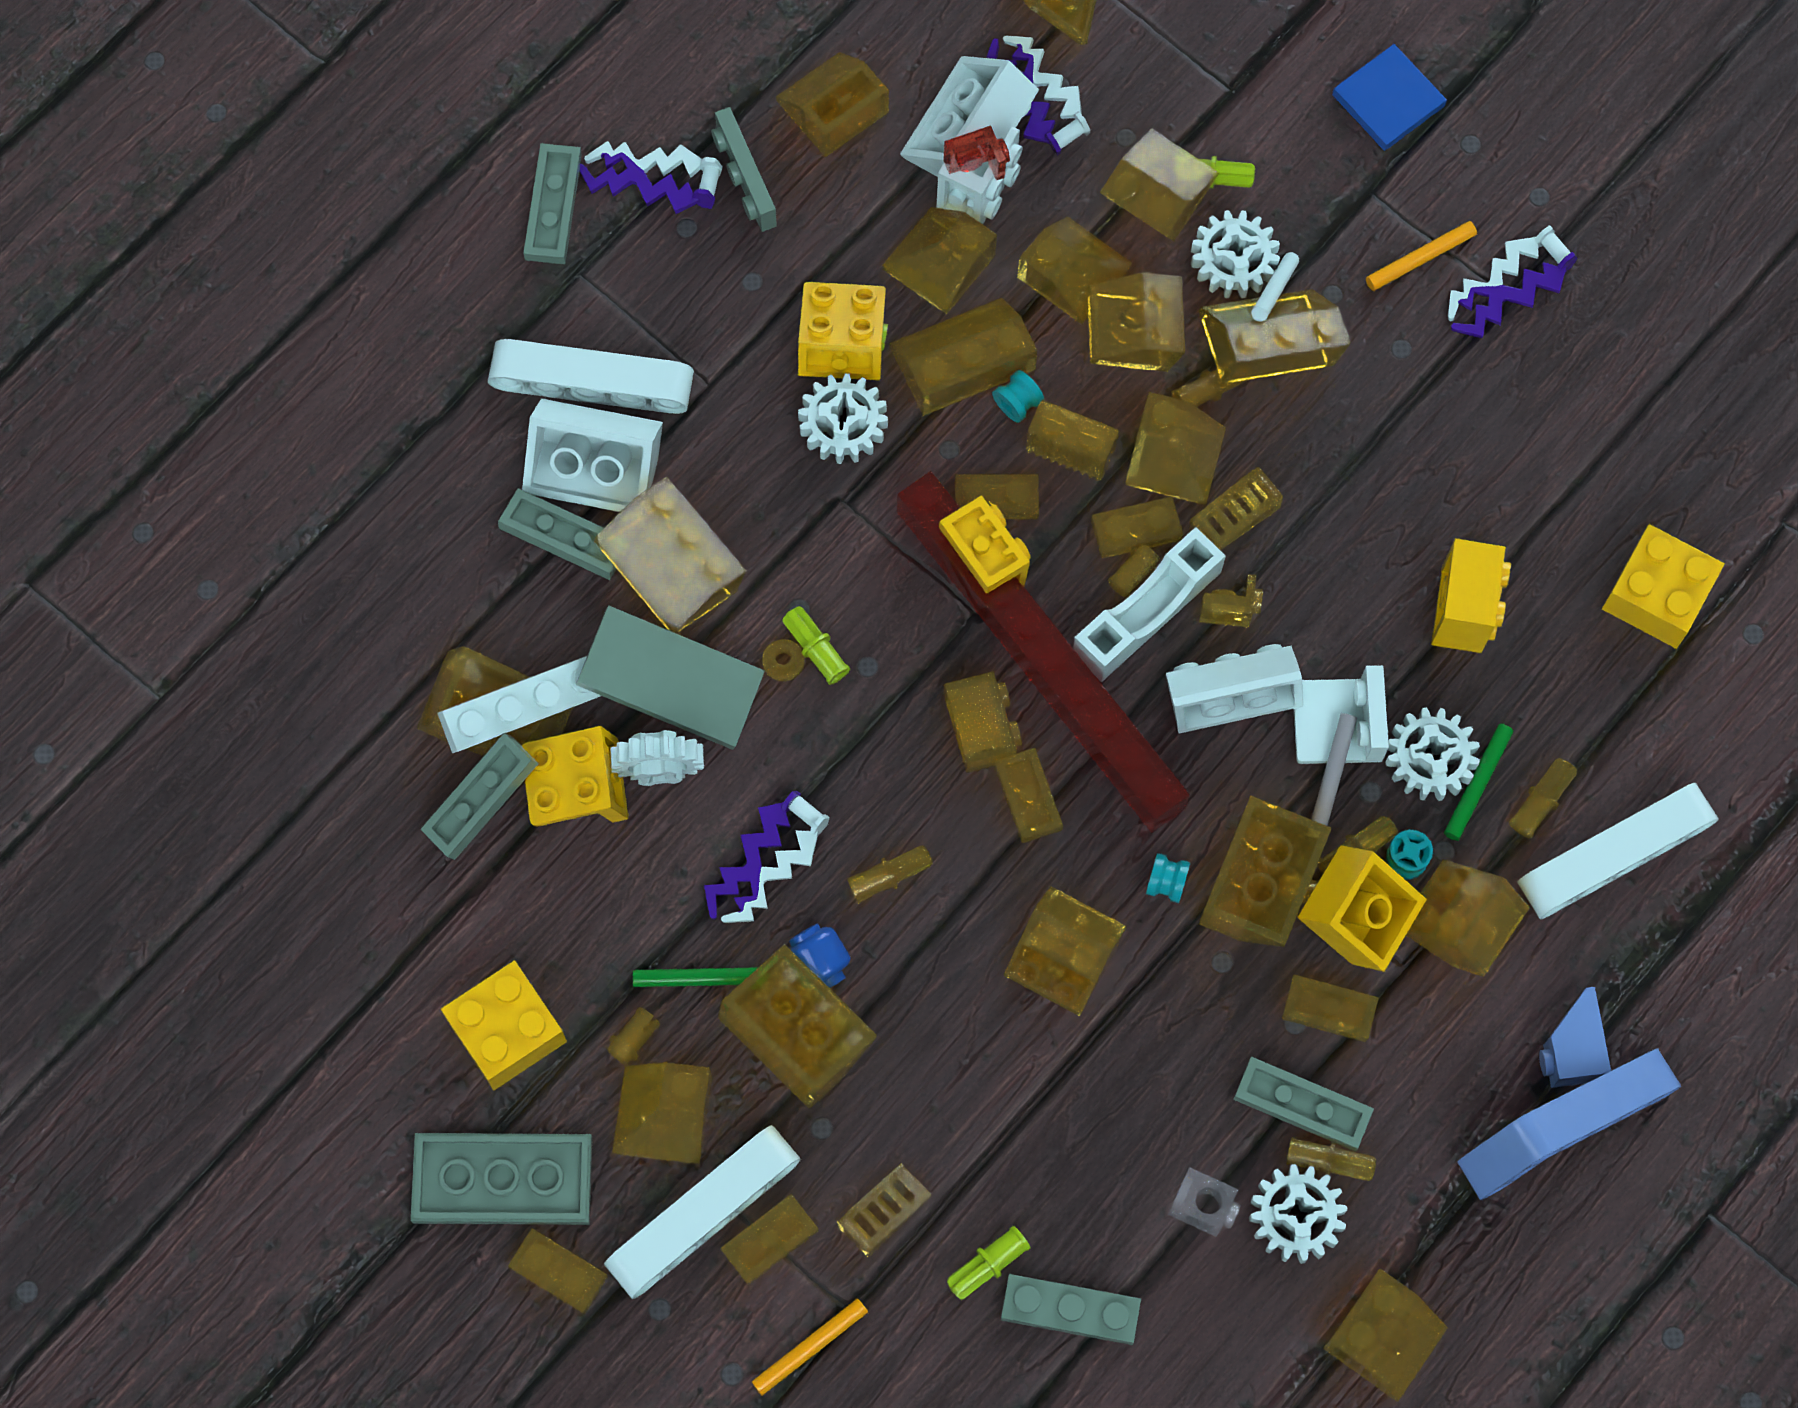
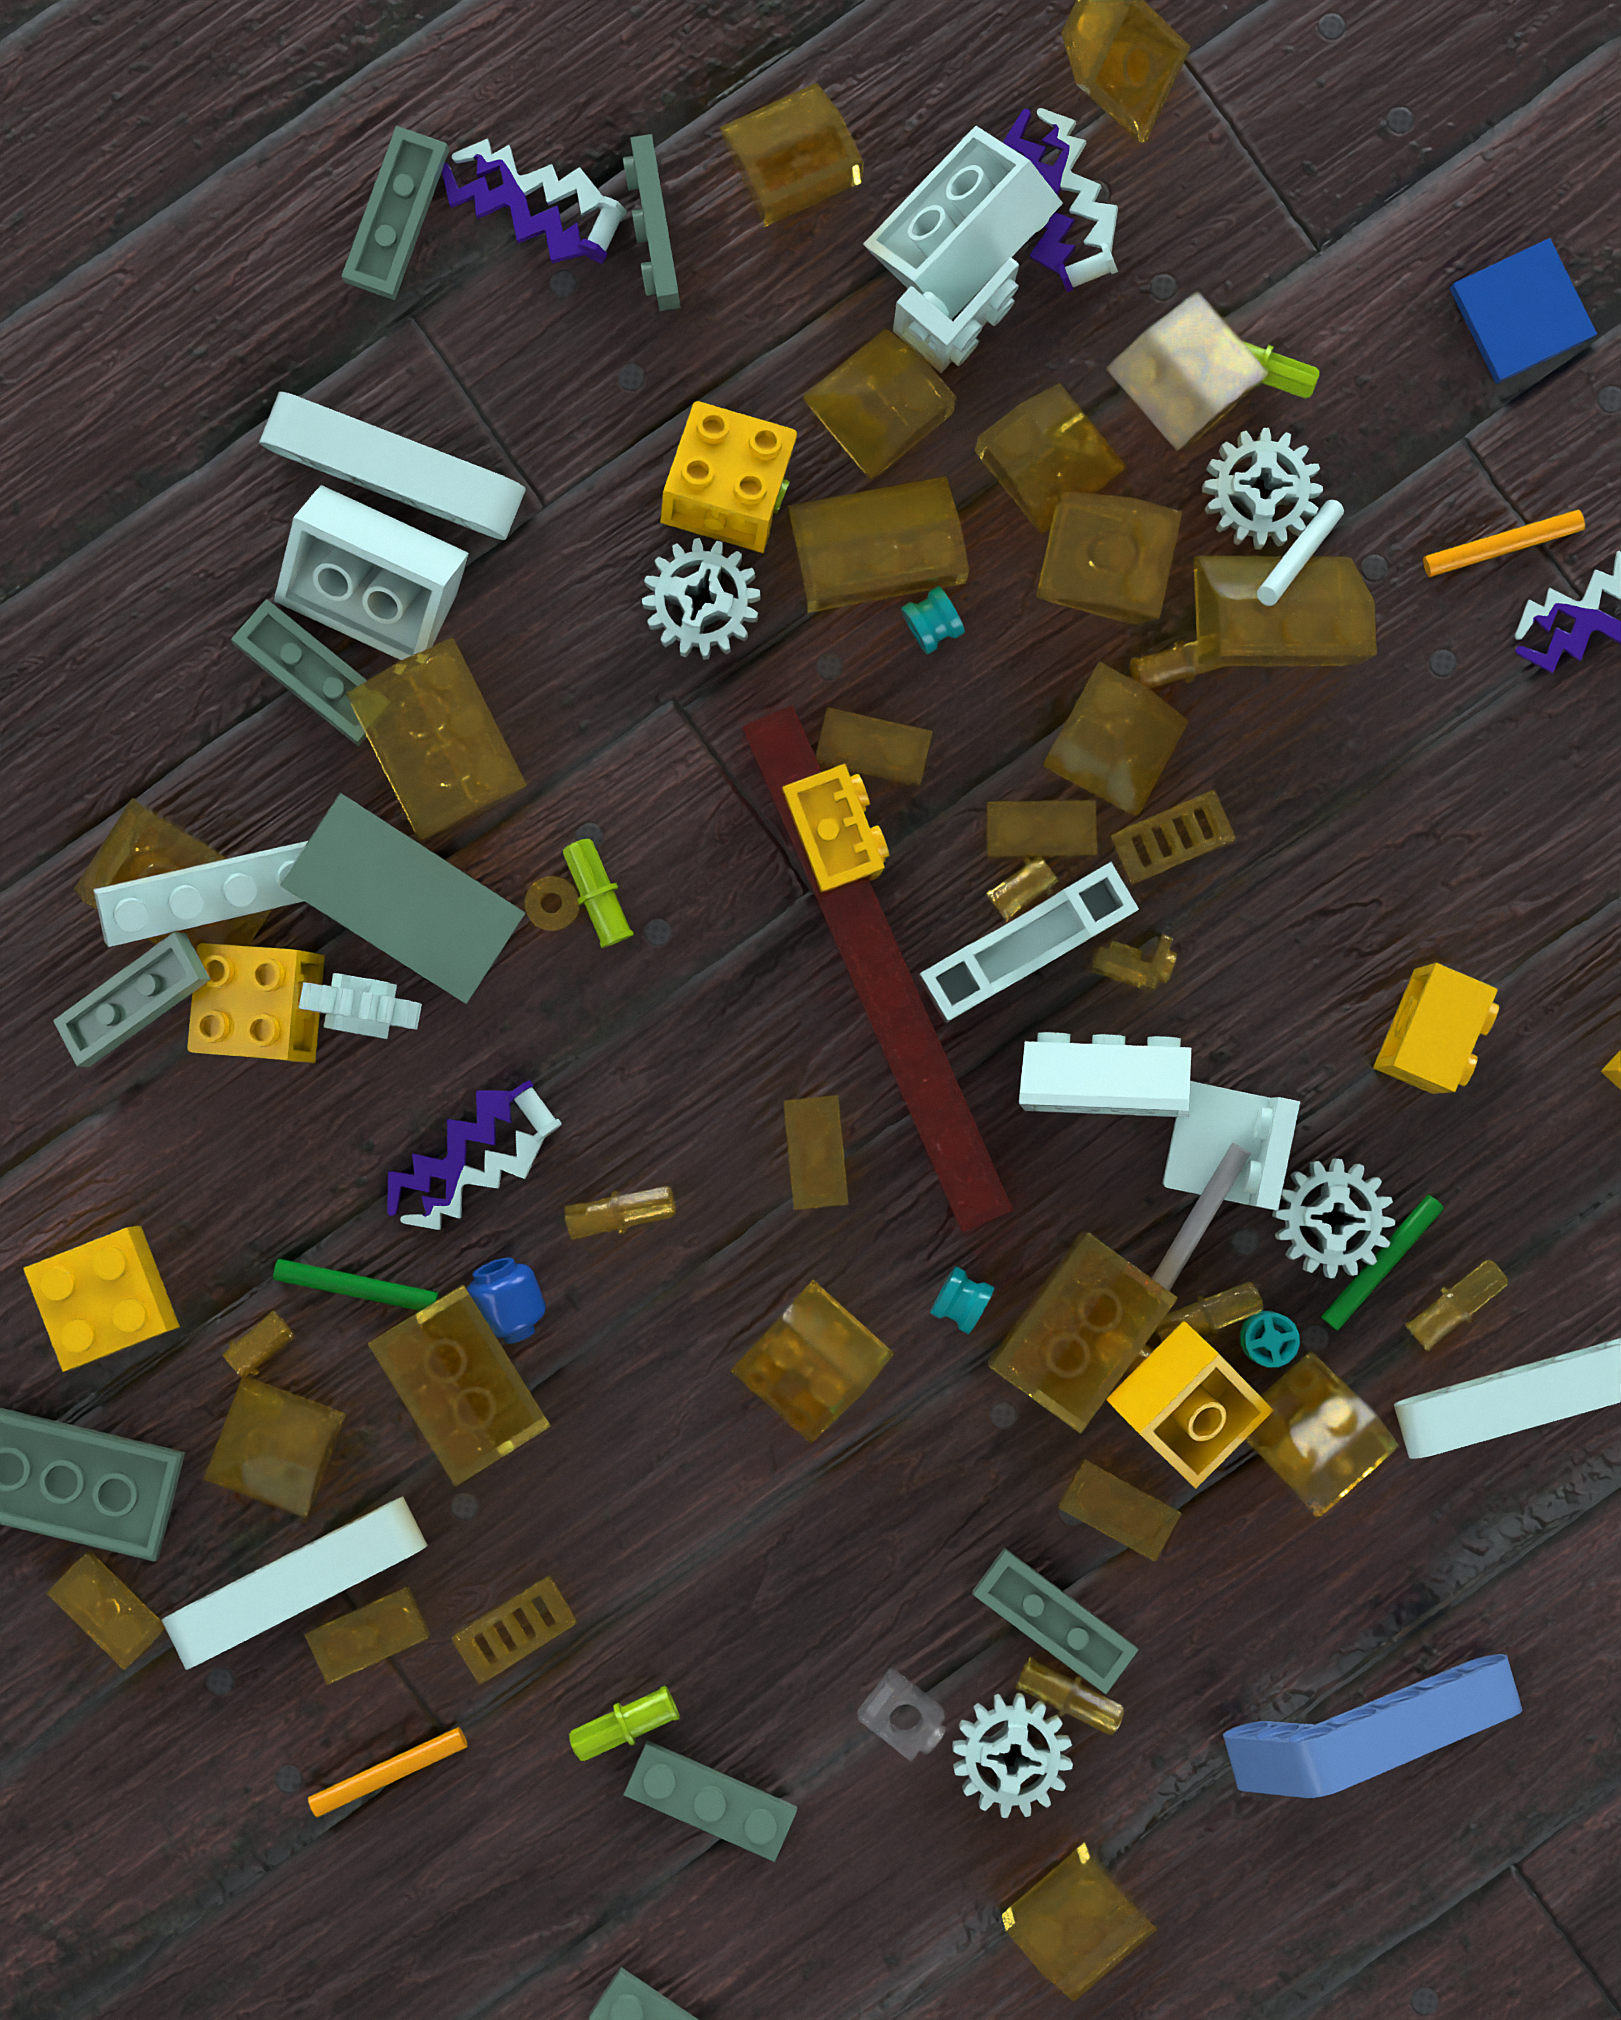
camera: 10 degrees right, 15 degrees up
(973, 149) = (944, 285): clear red bracket -> none
(981, 721) = (779, 1043): clear yellow brick -> none
(1071, 440) = (986, 696): clear yellow brick -> none
(1577, 1046) = (1409, 1627): medium blue slope -> none

